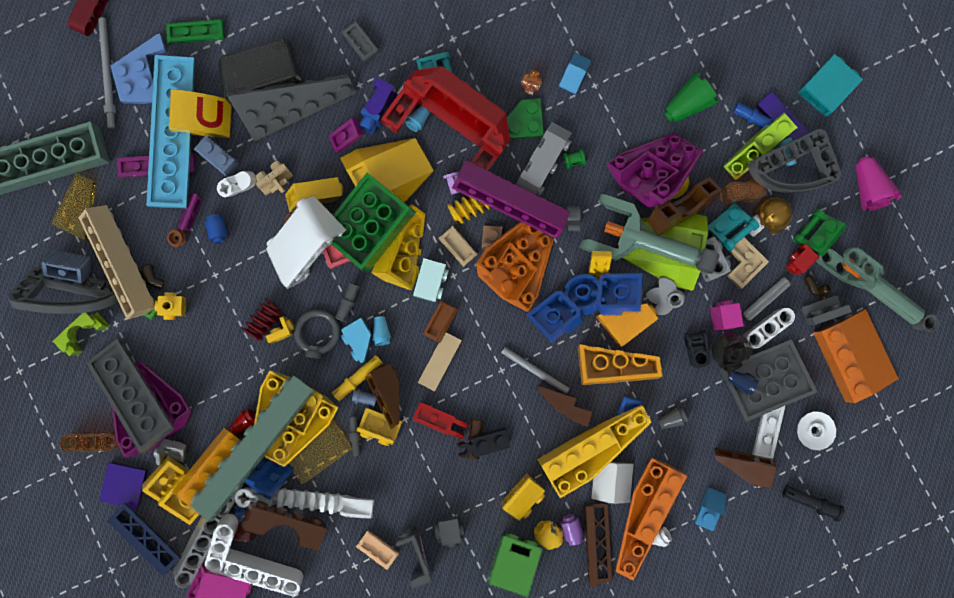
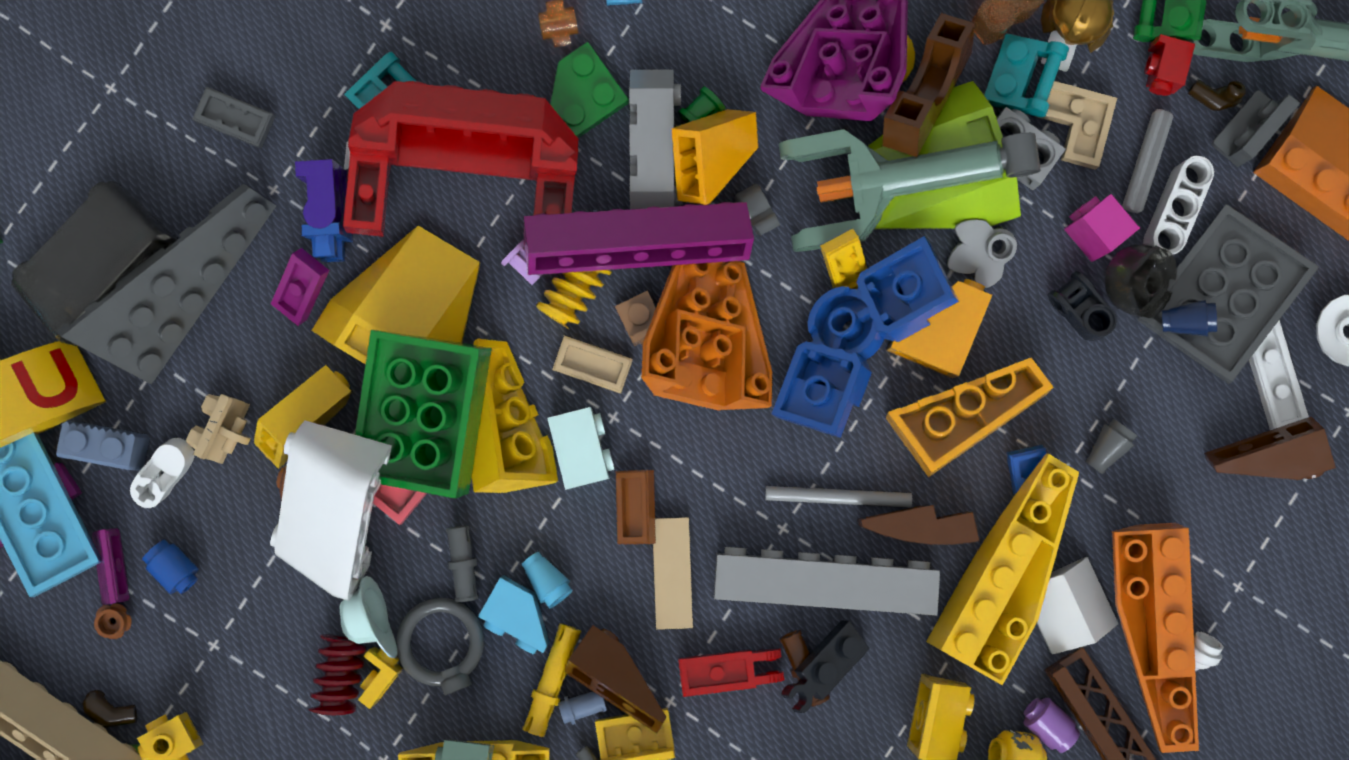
camera: 30 degrees left, 0 degrees up
(290, 301) = (366, 617): none -> light aqua piece
(417, 119) = (403, 191): medium azure cone -> none
(506, 406) = (826, 583): none -> light grey brick
(567, 180) = (711, 153): none -> light orange slope
(710, 509) = (1255, 557): dark azure slope -> none

